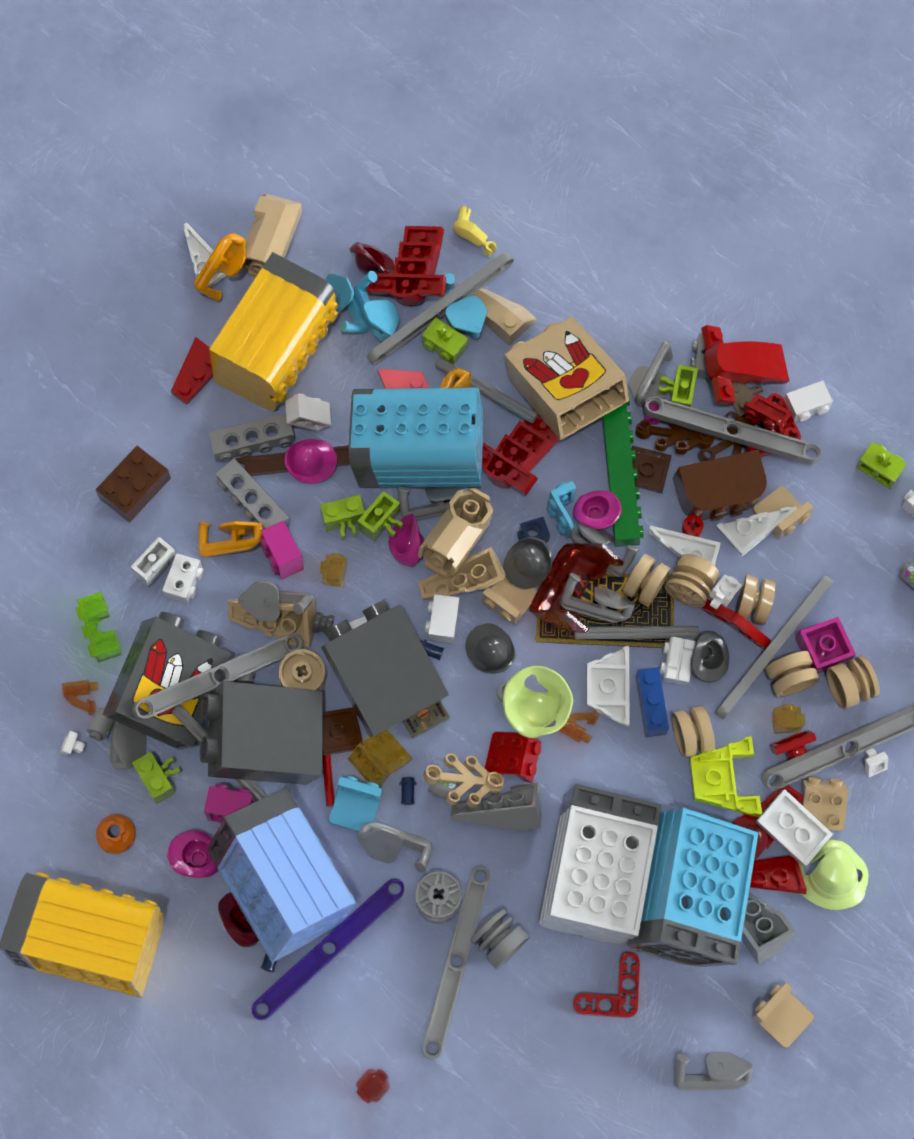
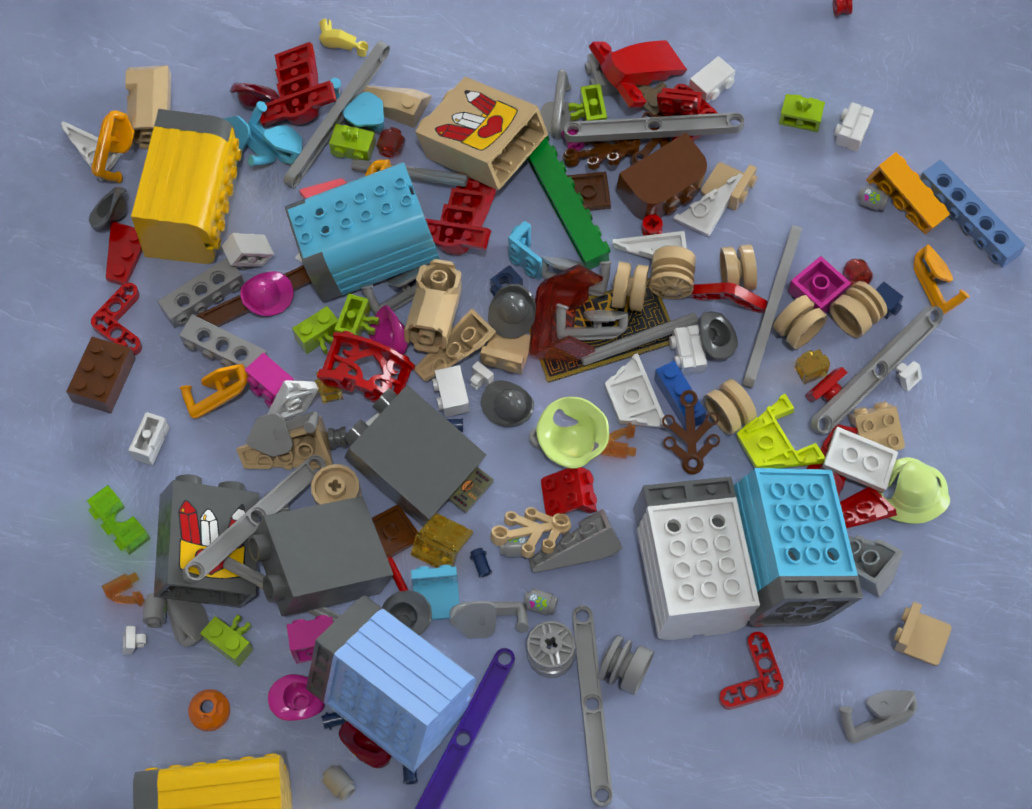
camera: 15 degrees left, 5 degrees down
(161, 431) = (111, 318): none -> red beam
(182, 579) = (183, 445): white brick -> none
(197, 324) = (109, 208): none -> dark grey hat
(203, 945) = (338, 782): none -> light grey brick
(218, 885) = (332, 720): none -> dark blue pin
(294, 575) = (293, 398): none -> white wing
(323, 813) = (410, 609): none -> dark grey hat
(345, 571) = (341, 379): none -> red fence
(447, 849) = (540, 602): none -> light grey brick
(475, 614) = (481, 376): none -> white tile
(480, 353) = (390, 142): none -> clear red head
(597, 509) = (557, 240): dark pink hat -> none
(646, 745) = (691, 436): none -> reddish brown plant
(724, 591) = (706, 271): white plate -> none
(868, 645) = (857, 270): none -> clear red head
(887, 682) = (891, 298): none -> dark blue brick

